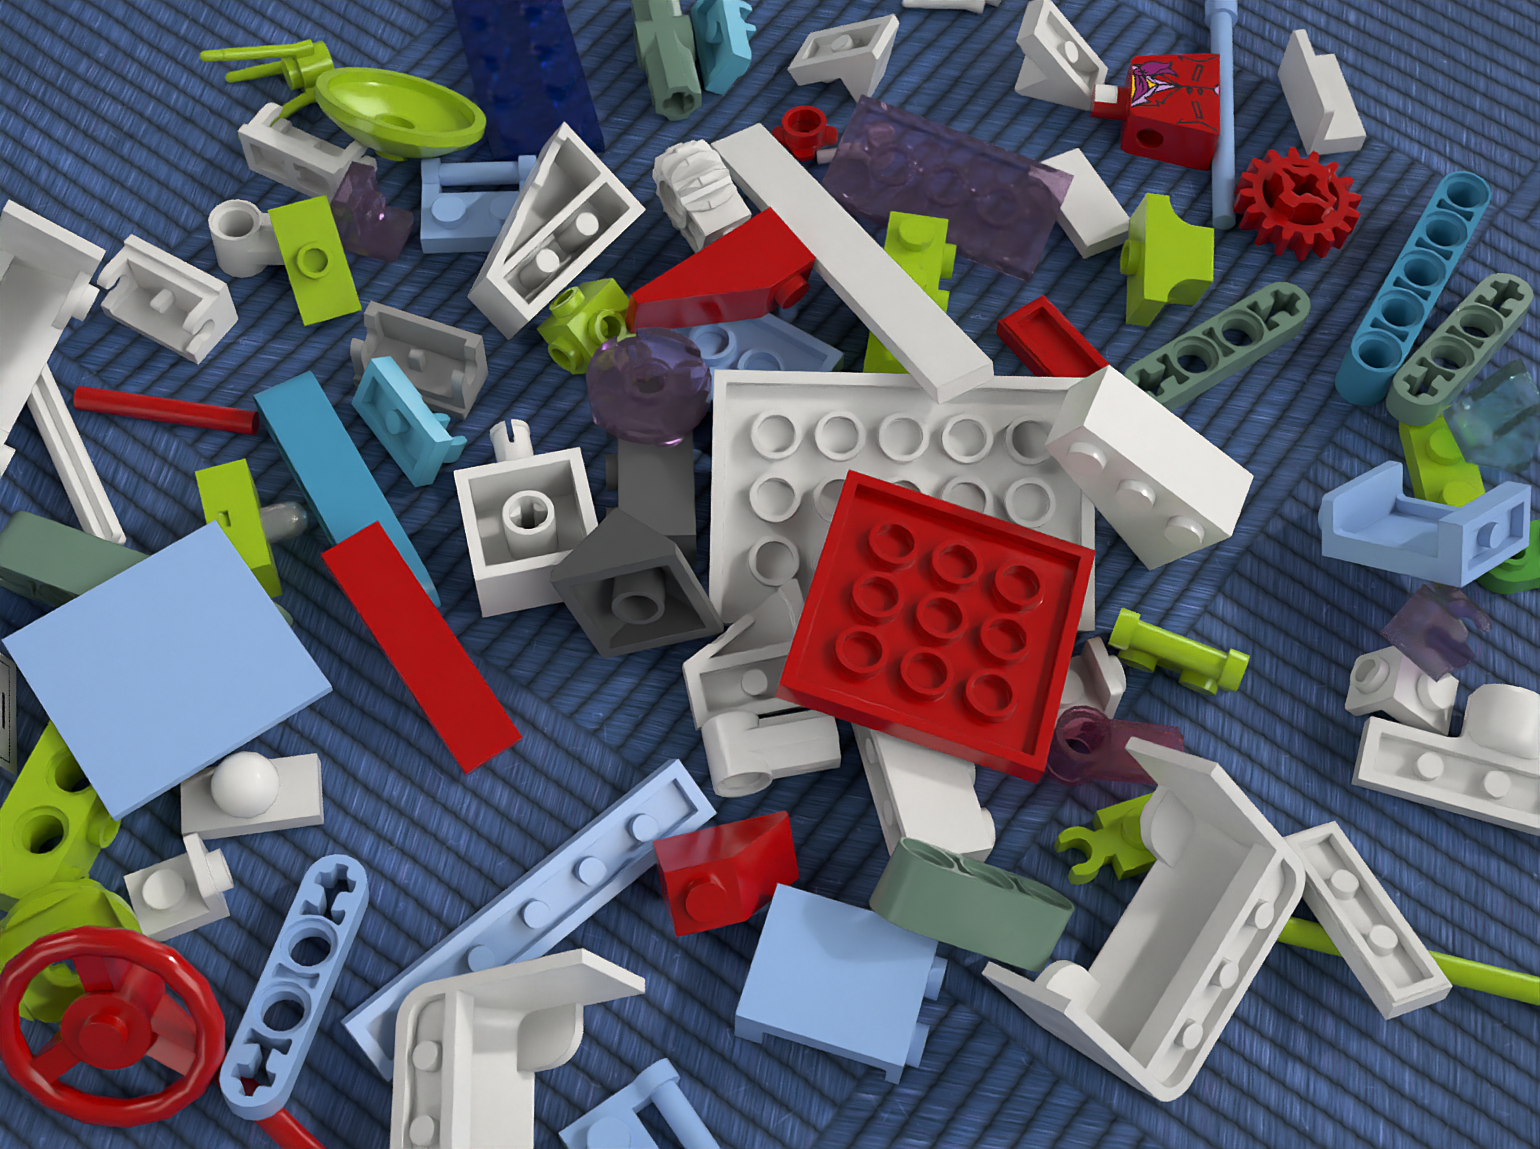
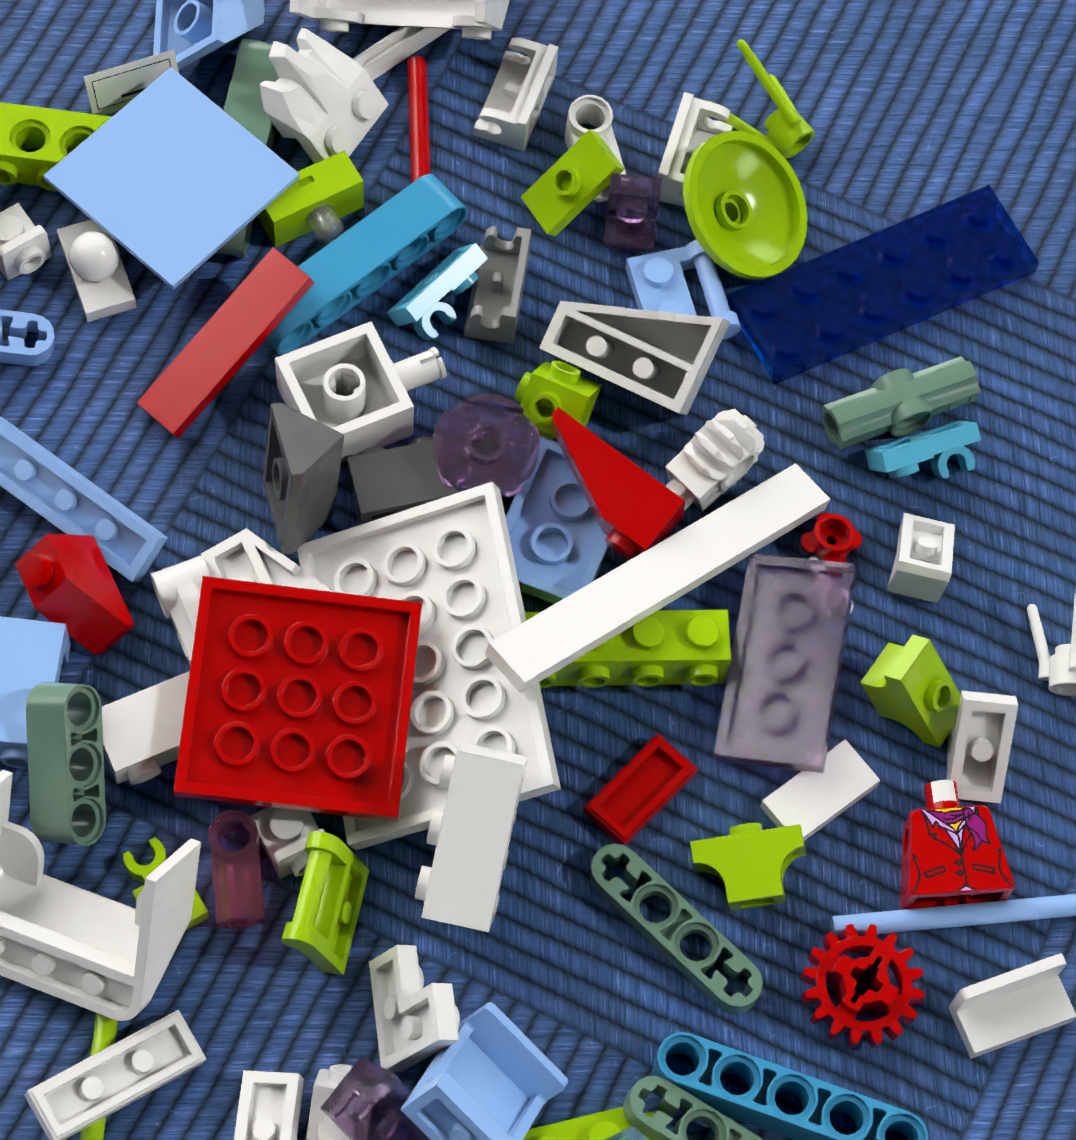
camera: 75 degrees right, 5 degrees up
(109, 487) = (320, 97): none -> white plate
(992, 90) = (914, 689): none -> lime brick
(1318, 605) = (410, 1018): none -> white plate

